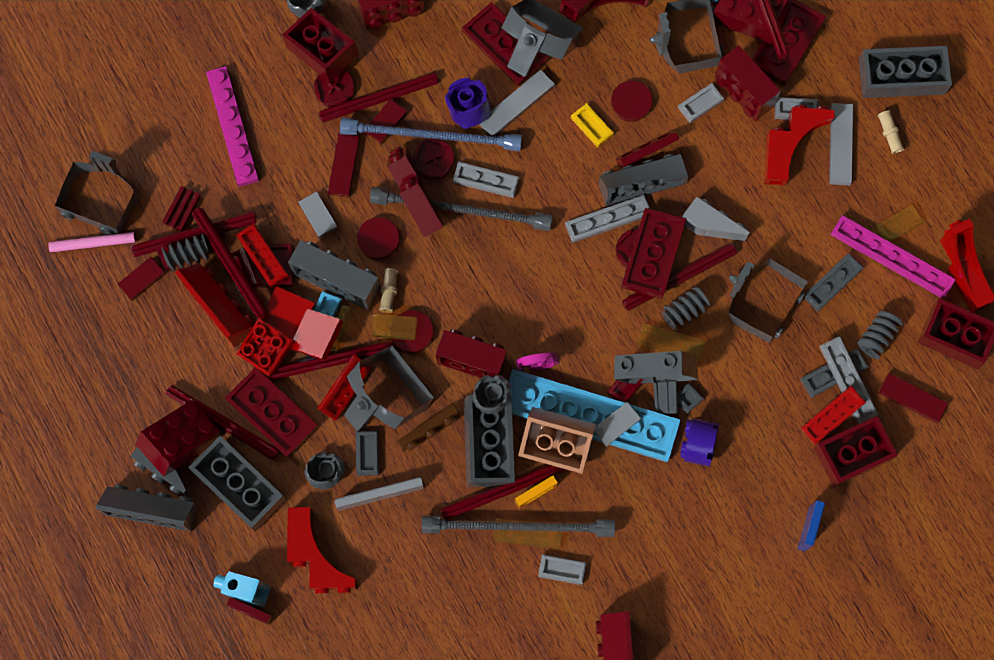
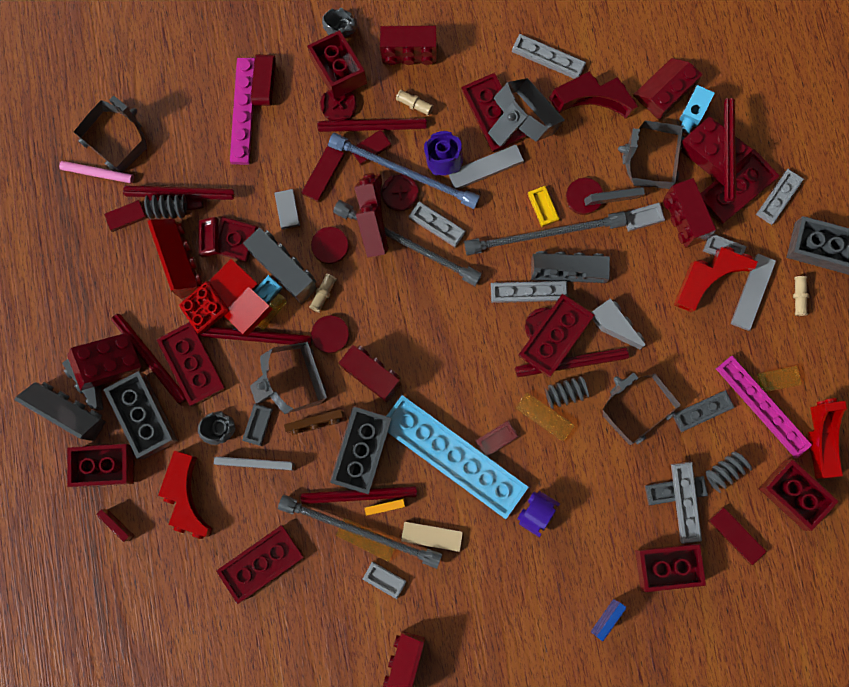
camera: 25 degrees right, 5 degrees up
(166, 221) = (173, 162): dark red tile -> none
(211, 552) = (100, 465): none -> dark red brick
(229, 262) = (198, 227): dark red axle -> none
(243, 86) = (263, 80): none -> dark red beam
(243, 588) = (115, 506): medium azure torso -> none
(262, 255) = (227, 229): red plate -> none
(341, 390) = (251, 367): red plate -> none
(394, 326) = (316, 325): clear yellow tile -> none
(416, 59) = (414, 102): none -> tan pin
(422, 598) = (260, 564): none -> dark red plate
(492, 394) = (373, 413): dark grey hair -> none
(538, 361) = (424, 397): dark pink tile -> none
(557, 440) = (416, 470): nougat brick -> none
(596, 506) = (432, 536): none -> tan tile
(616, 424) = (472, 473): light grey tile -> none
(646, 149) = (583, 242): dark red tile -> none
(662, 370) = (526, 441): dark grey piece -> none
(663, 90) = (614, 196): none -> dark grey tile
(671, 116) = (613, 220): none -> dark grey hose
(689, 398) = (542, 470): dark grey tile -> none
(833, 38) = (779, 196): none -> light grey tile
(833, 415) = (662, 528): red plate -> none

